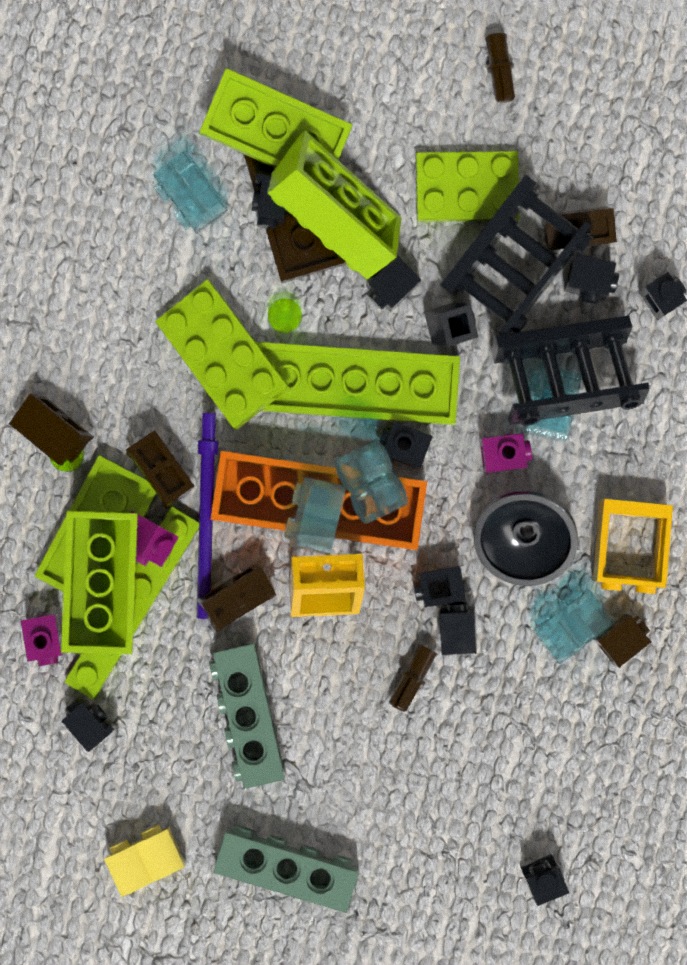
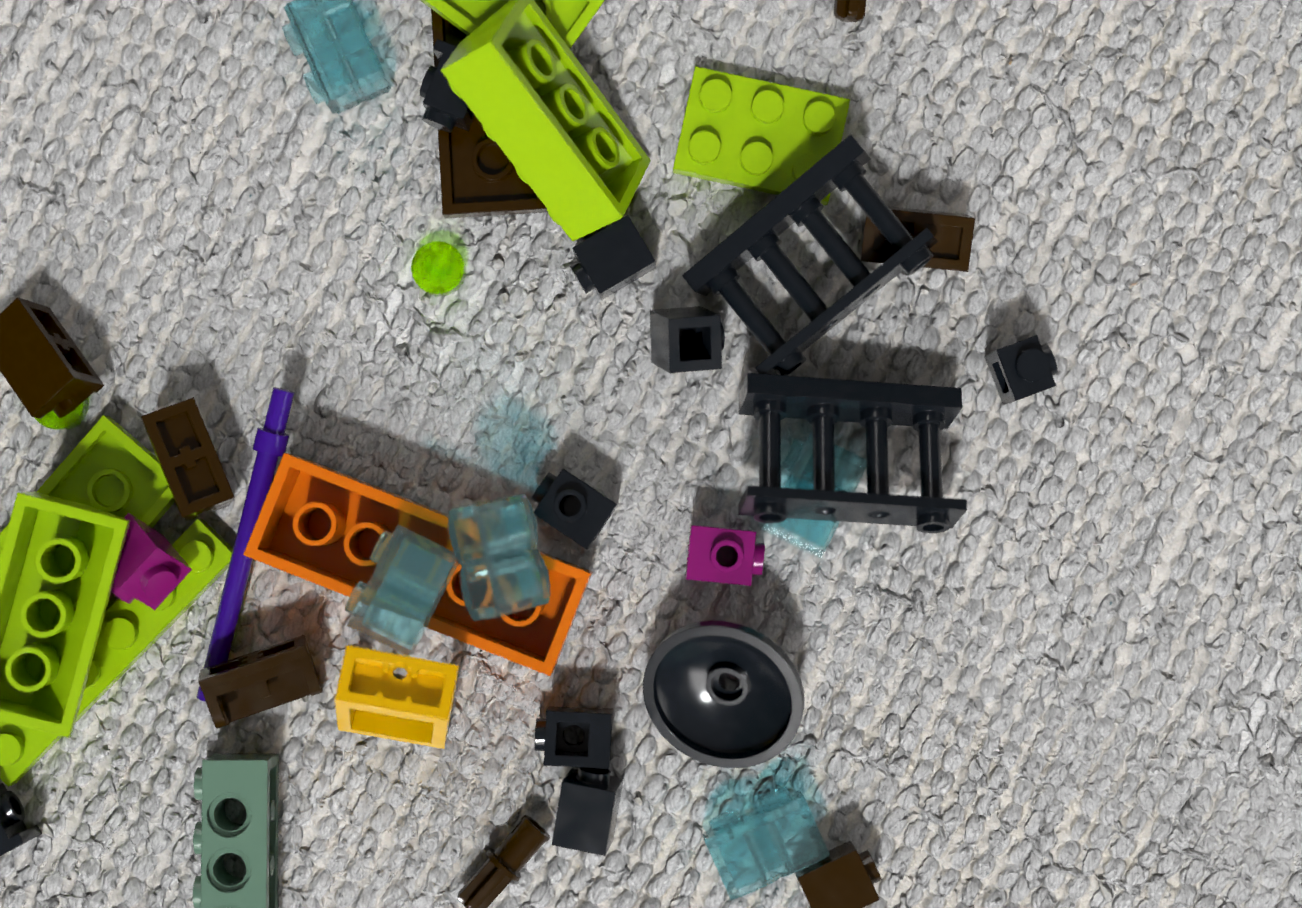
camera: 15 degrees right, 0 degrees up
(222, 354) = (327, 305): lime plate -> none
(365, 383) = (519, 395): lime plate -> none
(591, 278) = (917, 318): black brick -> none
(661, 557) = (887, 804): yellow window -> none

